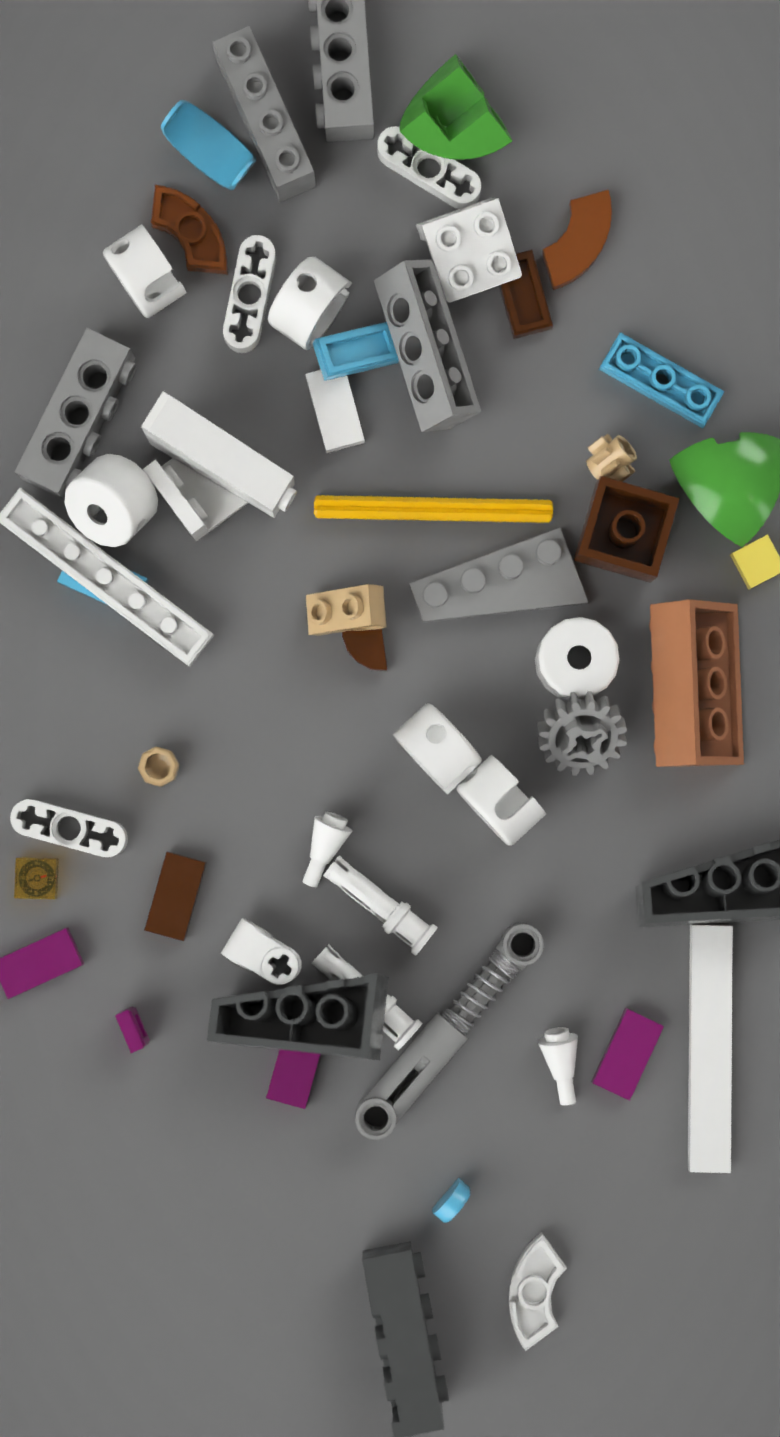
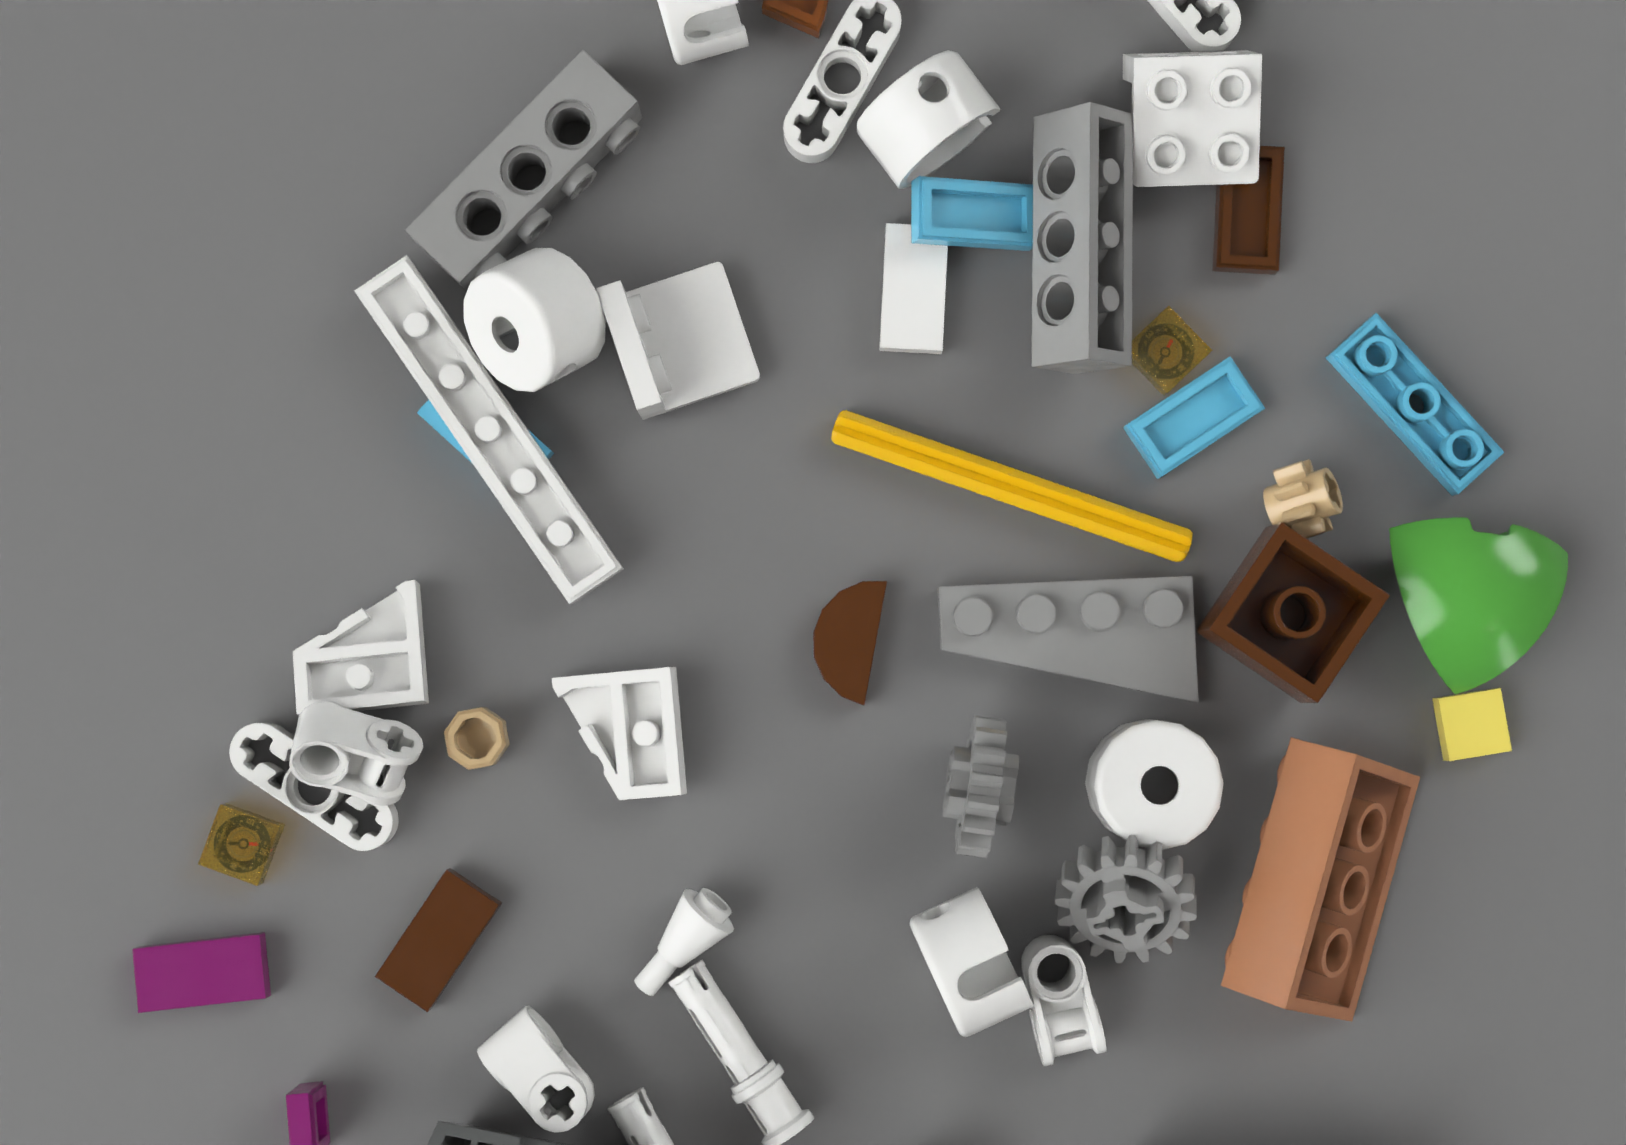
camera: 20 degrees right, 0 degrees up
(76, 741) = (369, 659): none -> white wing
(89, 797) = (351, 751): none -> white piece
(218, 456) = (715, 304): white slope -> none
(250, 729) = (631, 727): none -> white wing
(346, 610) = (832, 597): tan plate -> none
(438, 747) = (904, 880): white piece -> none
(472, 693) = (980, 786): none -> light grey gear
(501, 396) = (1167, 350): none -> clear yellow tile
(530, 431) = (1193, 417): none -> medium azure tile
(565, 811) = (1063, 1010): none -> white piece
(582, 241) = (1363, 158): dark orange tile -> none

